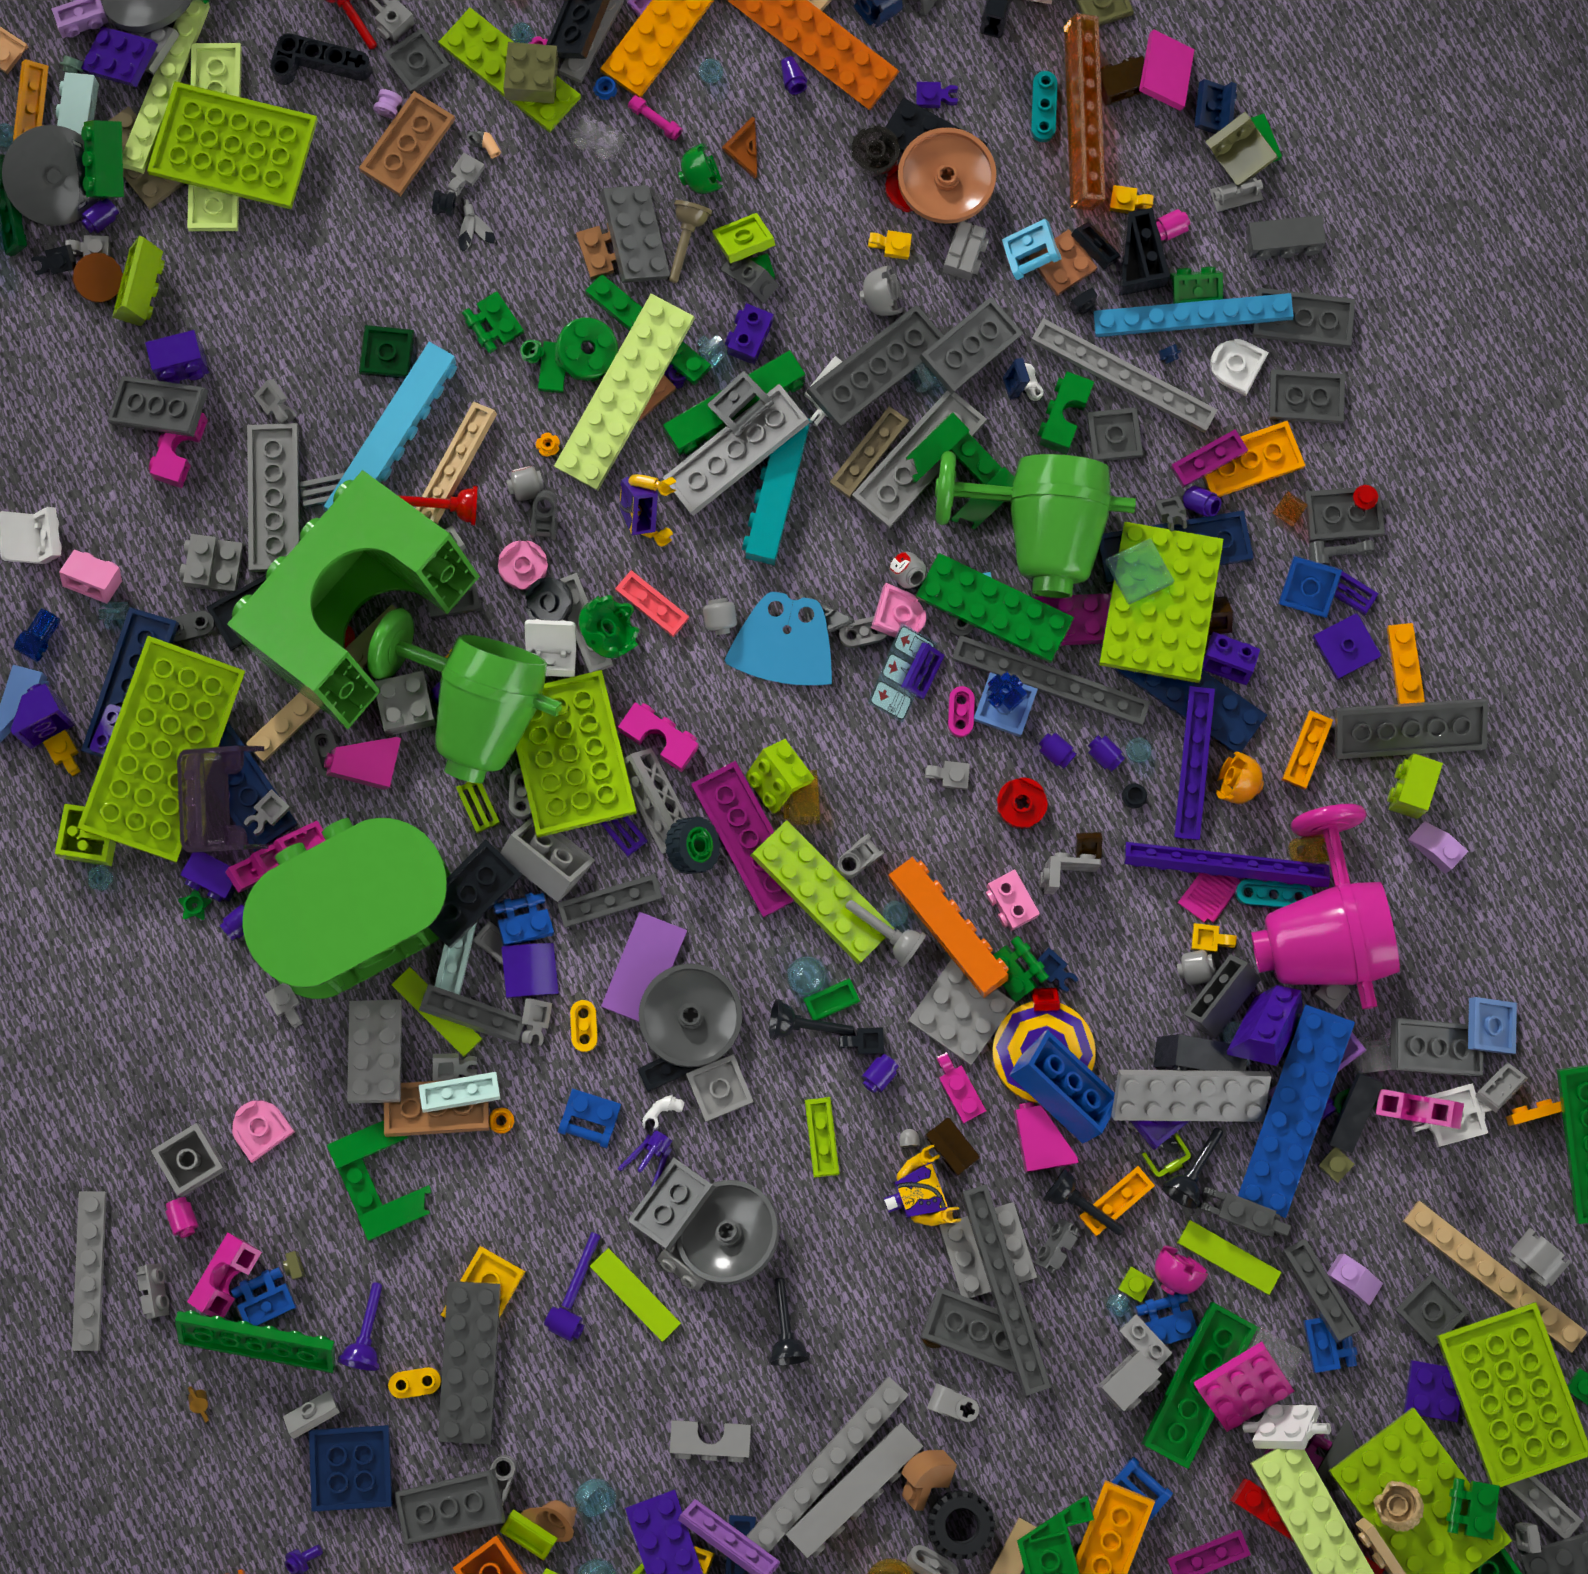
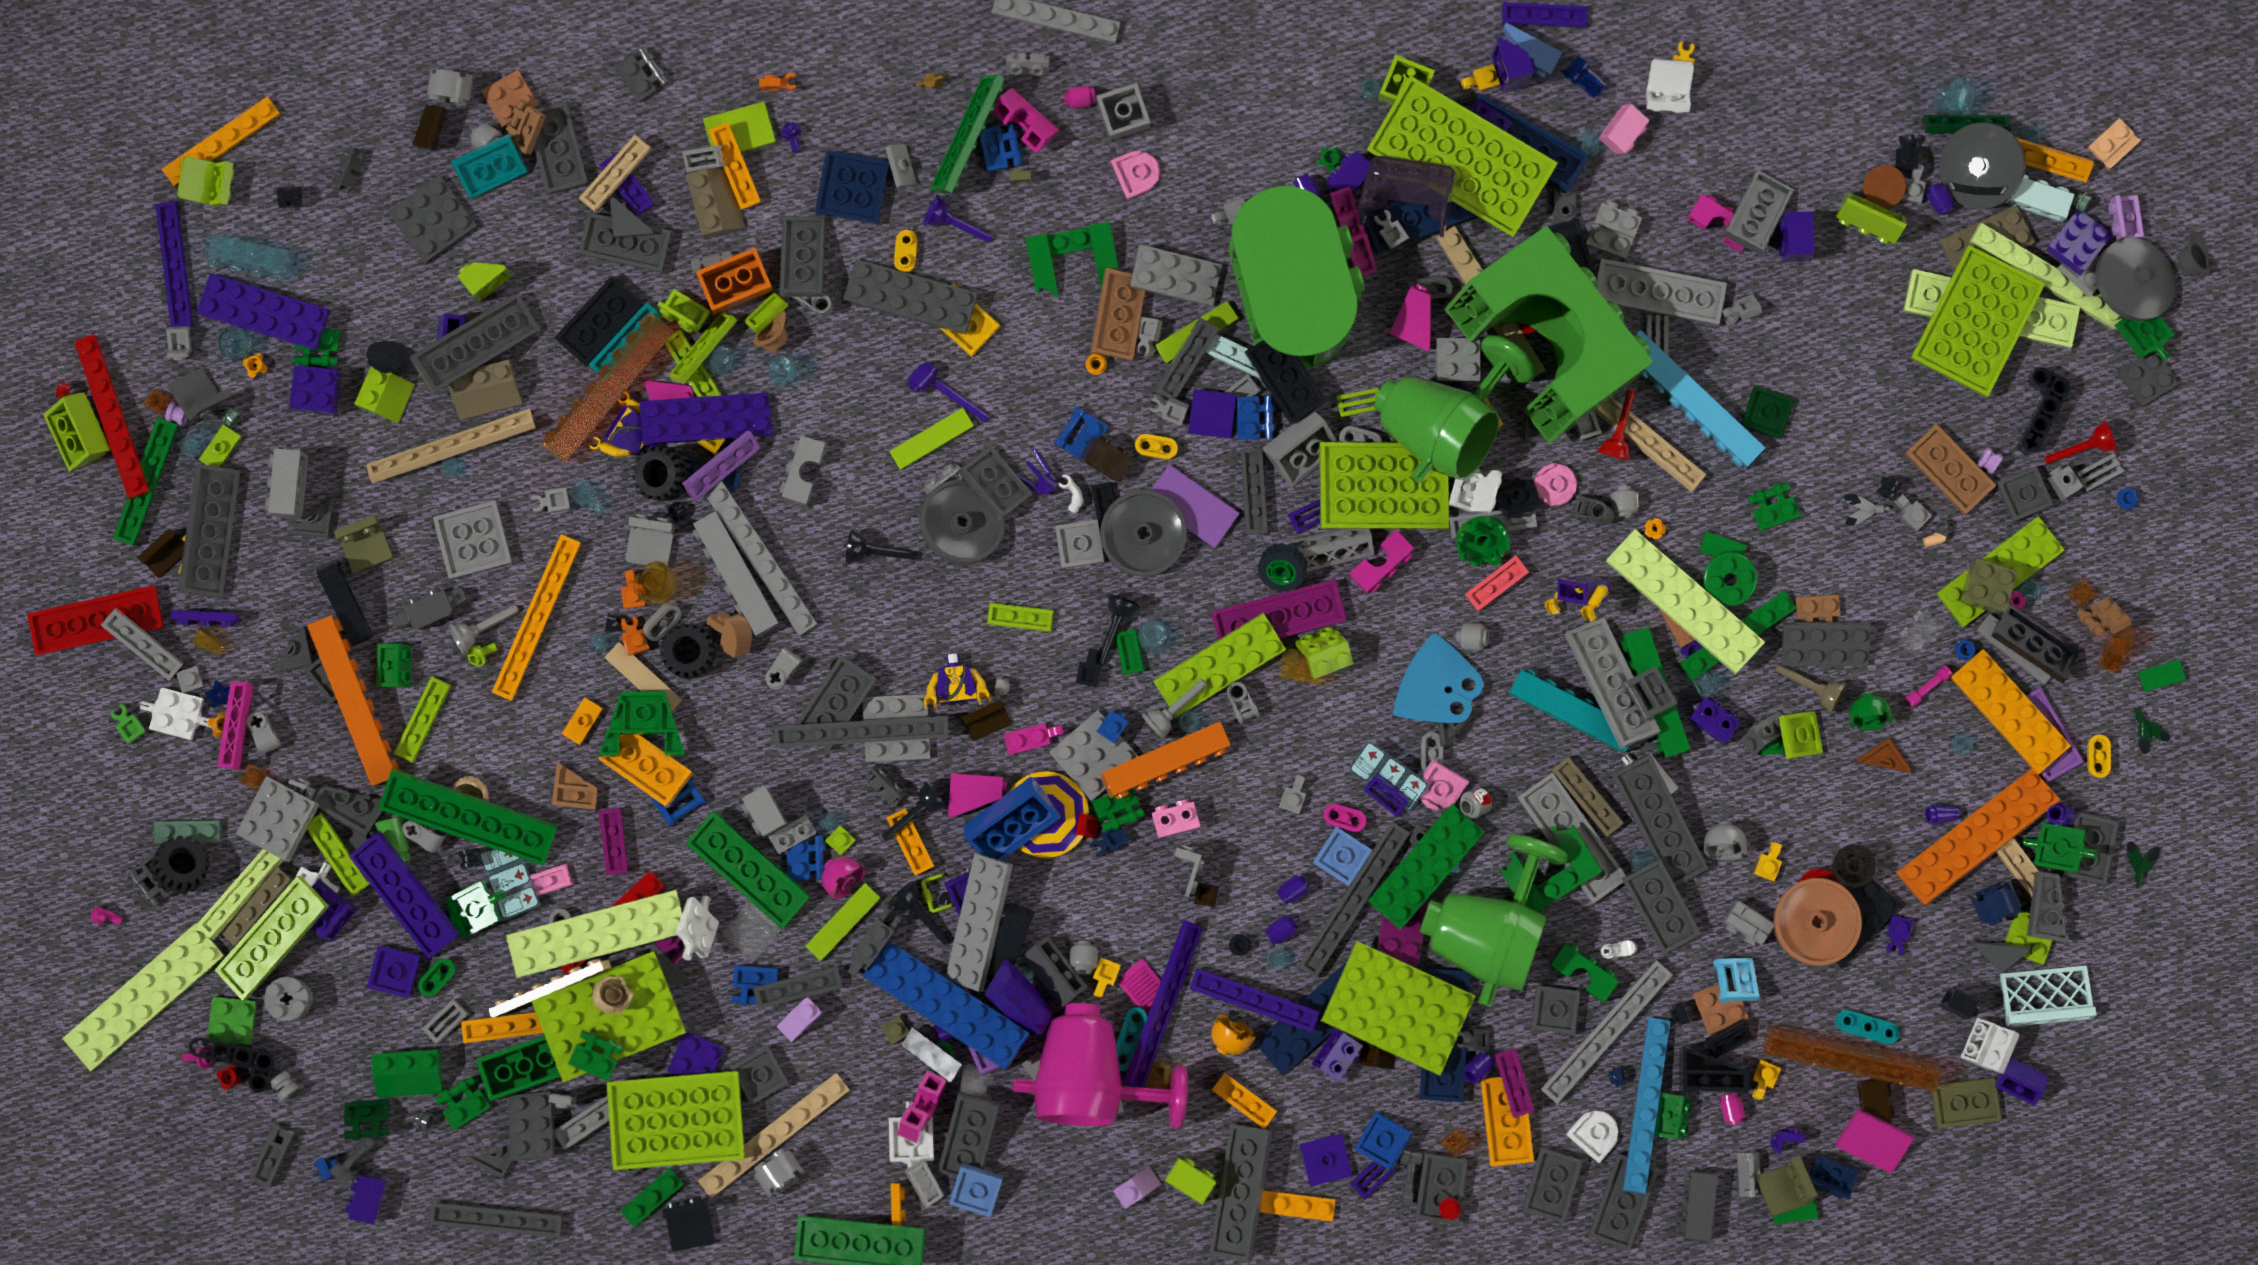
camera: 105 degrees right, 5 degrees up
(103, 159) = (1985, 209): green brick -> none
(459, 1092) = (1125, 334): light aqua plate -> none
(528, 347) = (1743, 530): green plate -> none
(612, 1080) = (1105, 458): none -> dark brown brick
(879, 1074) = (1059, 675): dark purple brick -> none
(923, 997) = (1113, 726): none -> blue bracket
(1005, 701) = (1342, 859): clear blue brick -> none
(1016, 378) = (1621, 936): dark blue plate -> none
(1035, 798) = (1268, 849): red plate -> none
(1139, 571) = (1427, 994): clear light blue tile -> none
(1184, 160) = (1790, 1135): none -> dark purple bracket
(1244, 1386) = (736, 901): dark pink plate -> none

